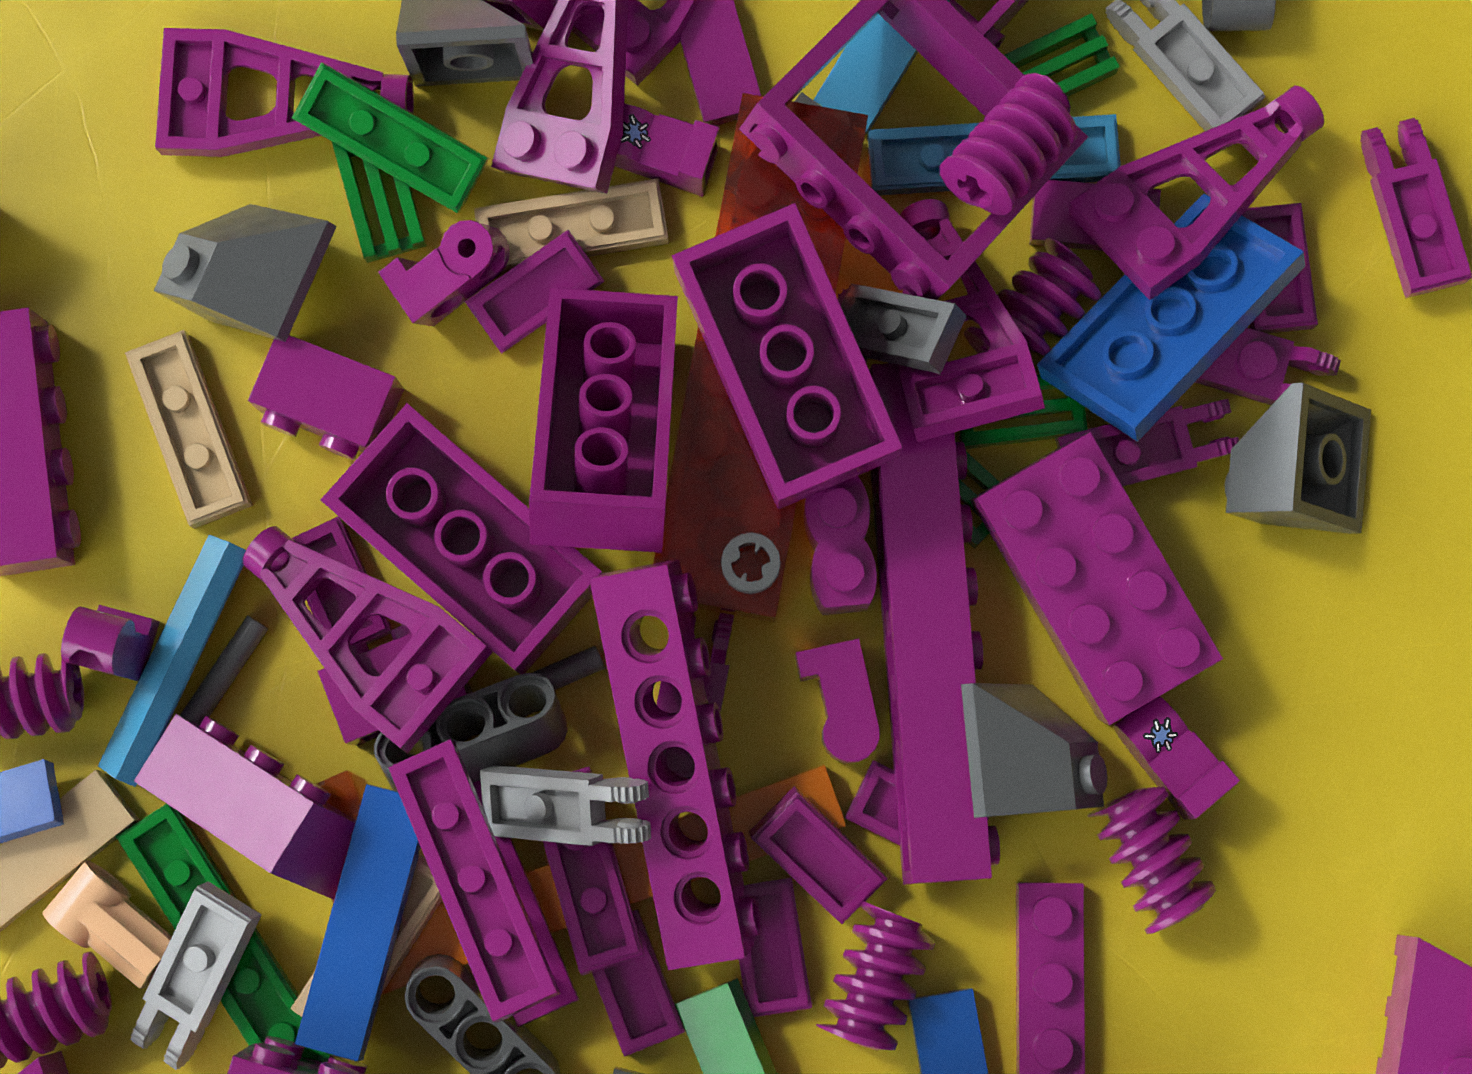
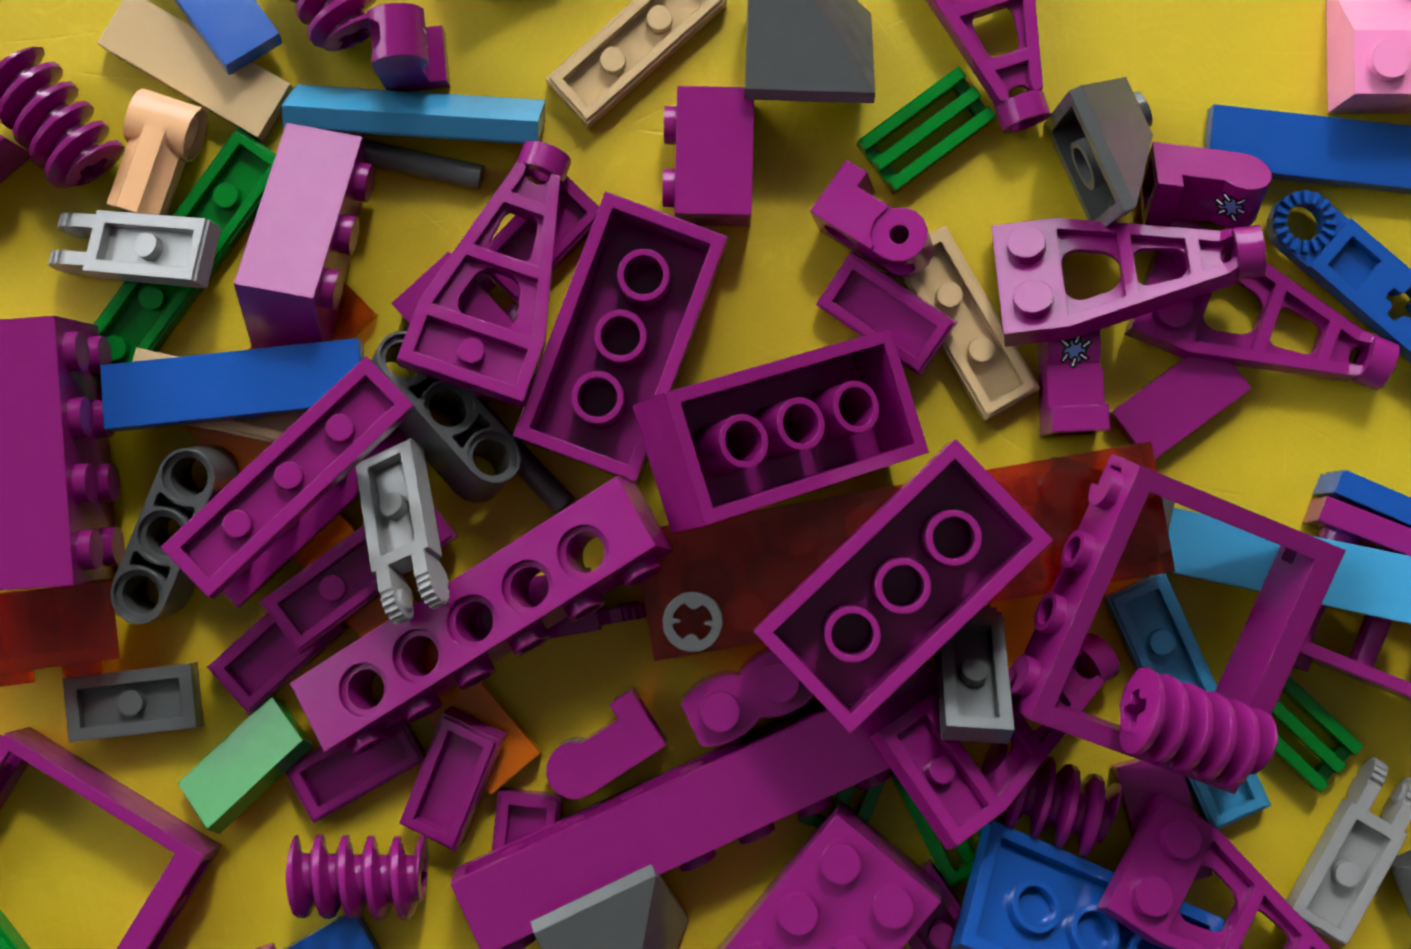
camera: 70 degrees right, 5 degrees up
(390, 137) = (981, 119): green tile -> none

